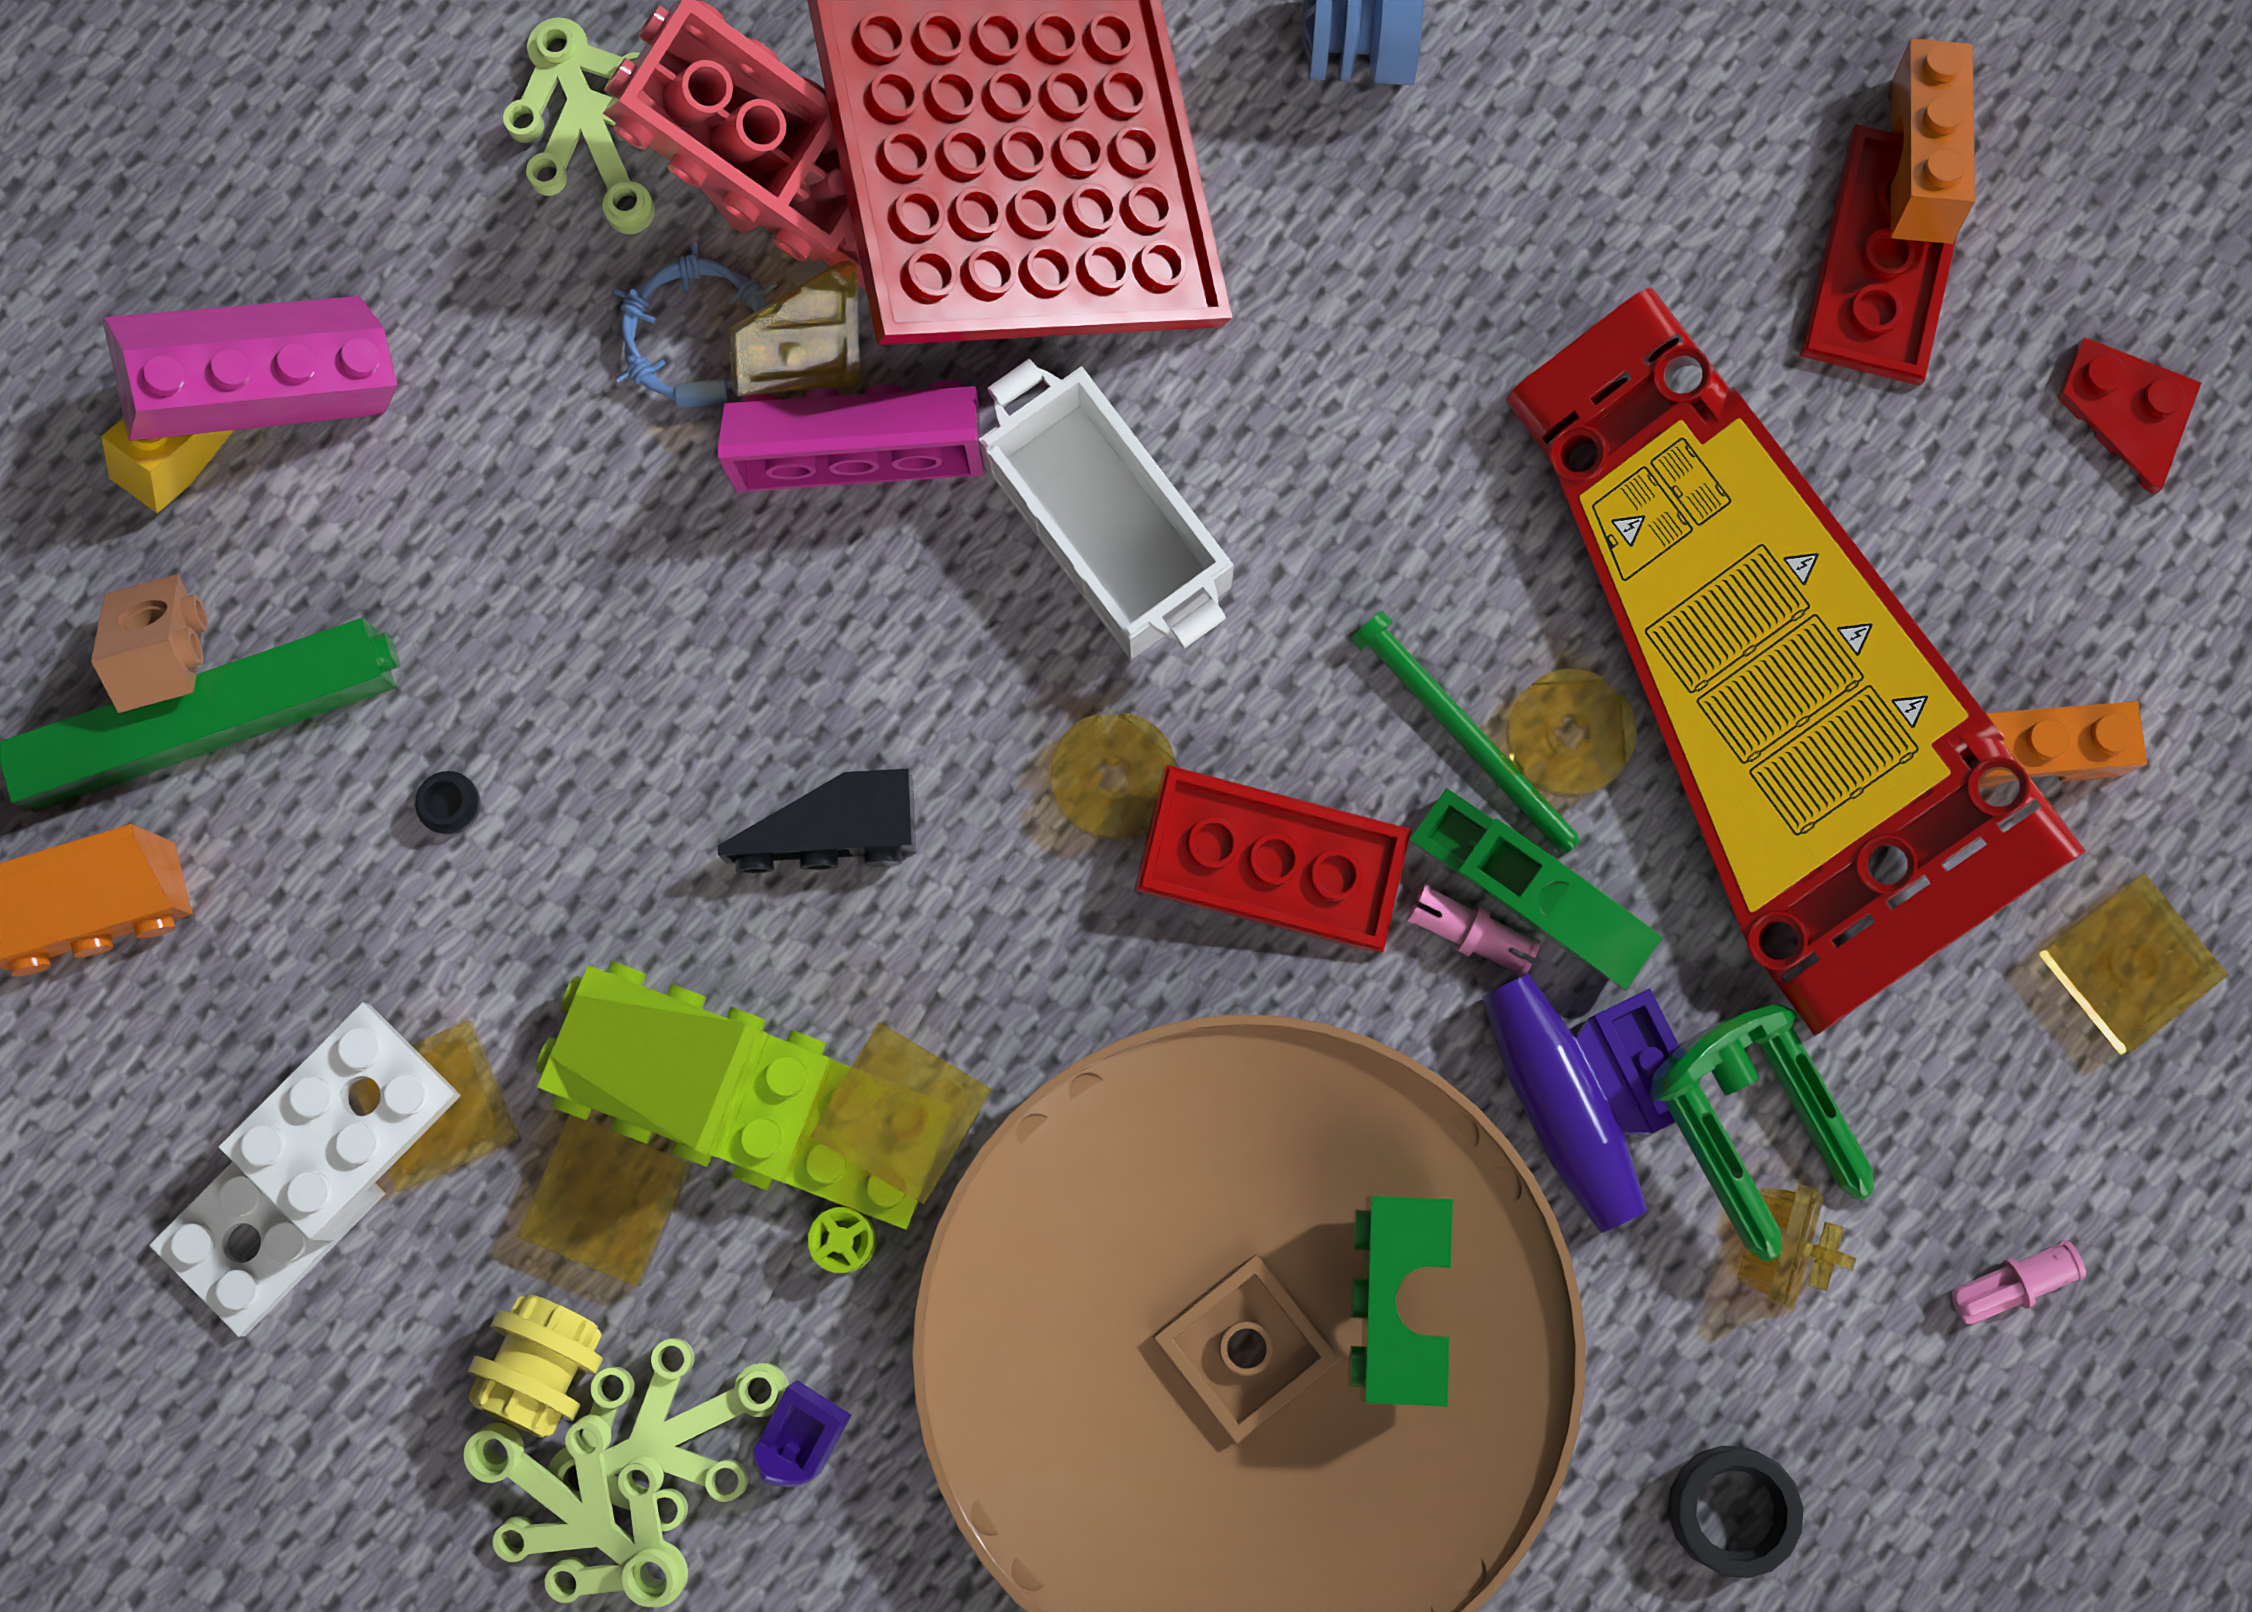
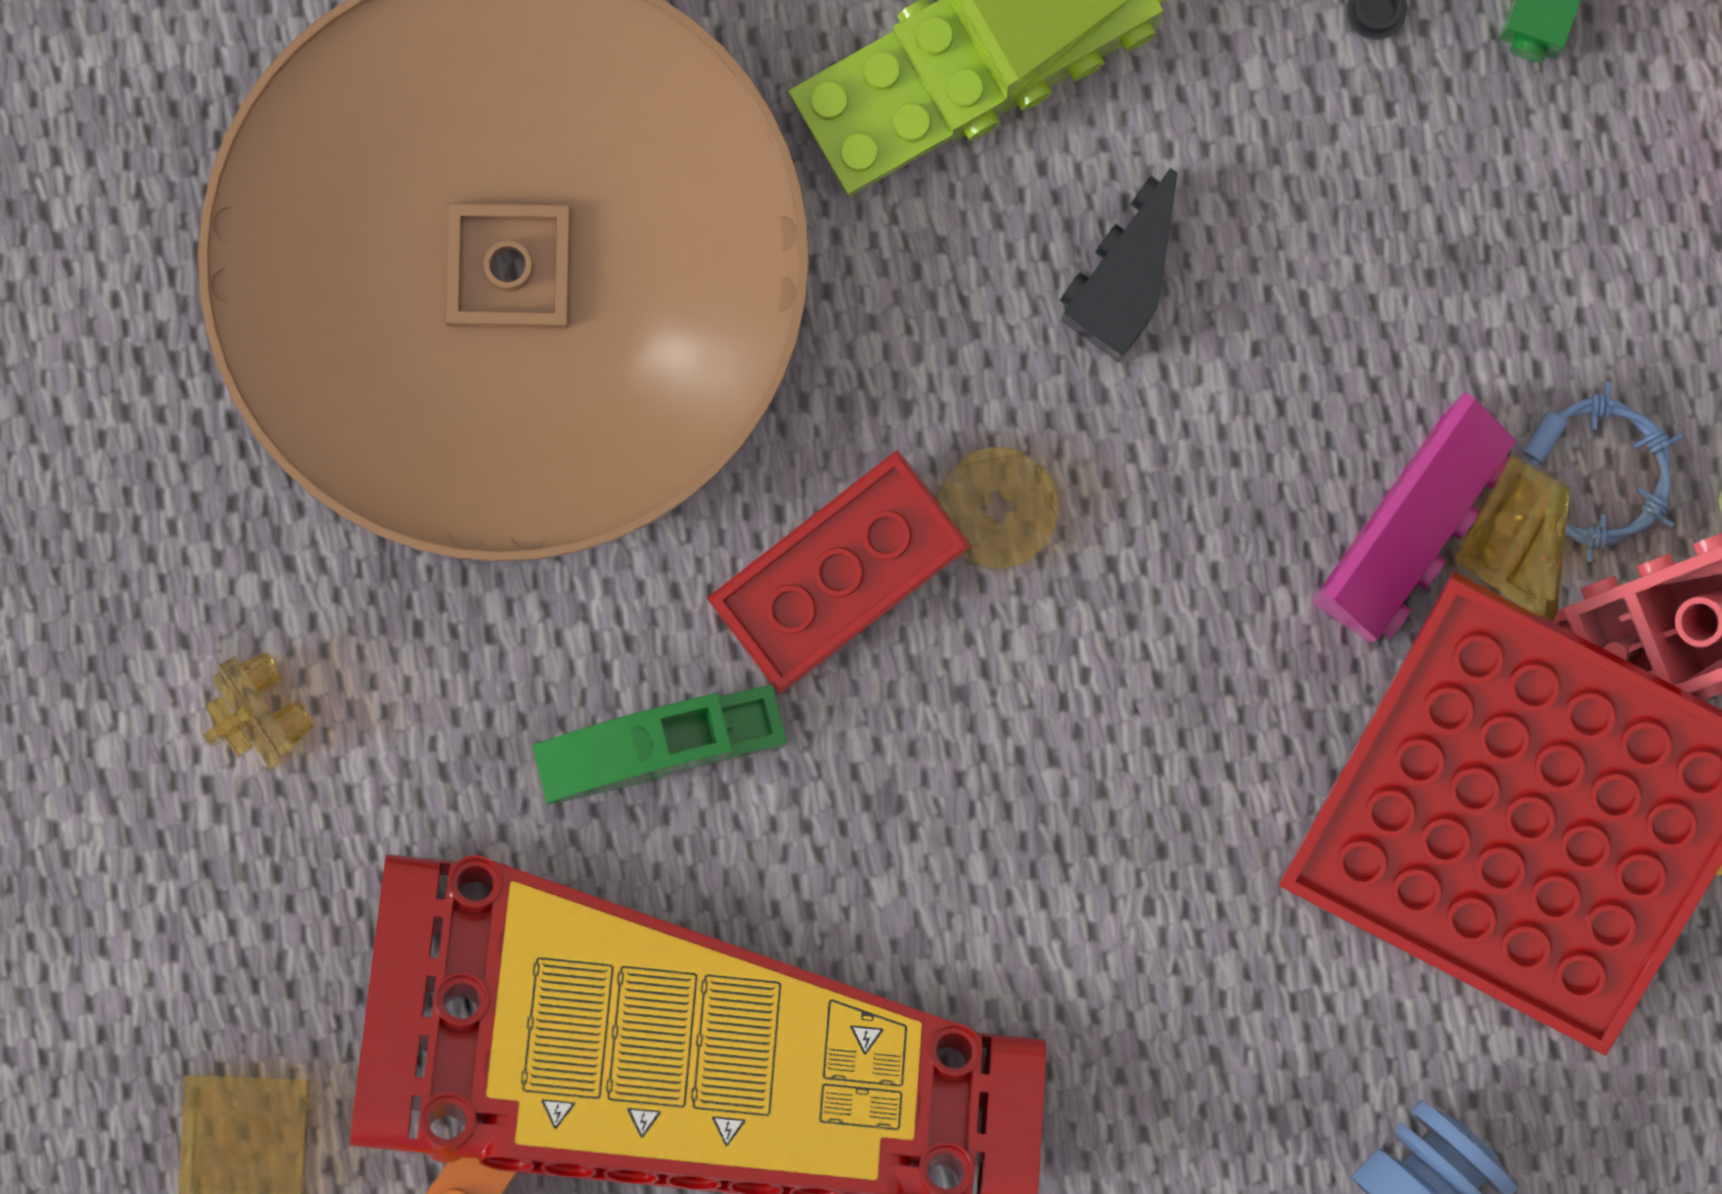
camera: 130 degrees right, 5 degrees up
(827, 1237) = (820, 31): lime wheel -> none
(901, 1113) = (871, 149): clear yellow plate -> none
(1105, 510) = (1200, 659): white container -> none
(1393, 1360) = (409, 351): green arch -> none
(1464, 731) = (819, 796): green bar -> none
(1473, 931) = (667, 676): bright pink pin -> none
(1586, 1089) = (485, 655): dark purple plate -> none
(1594, 708) = (718, 877): clear yellow plate -> none
(1723, 1053) = (431, 774): green piece -> none
(1784, 1495) = (80, 481): black tyre -> none
(2018, 1282) = (96, 852): bright pink axle -> none

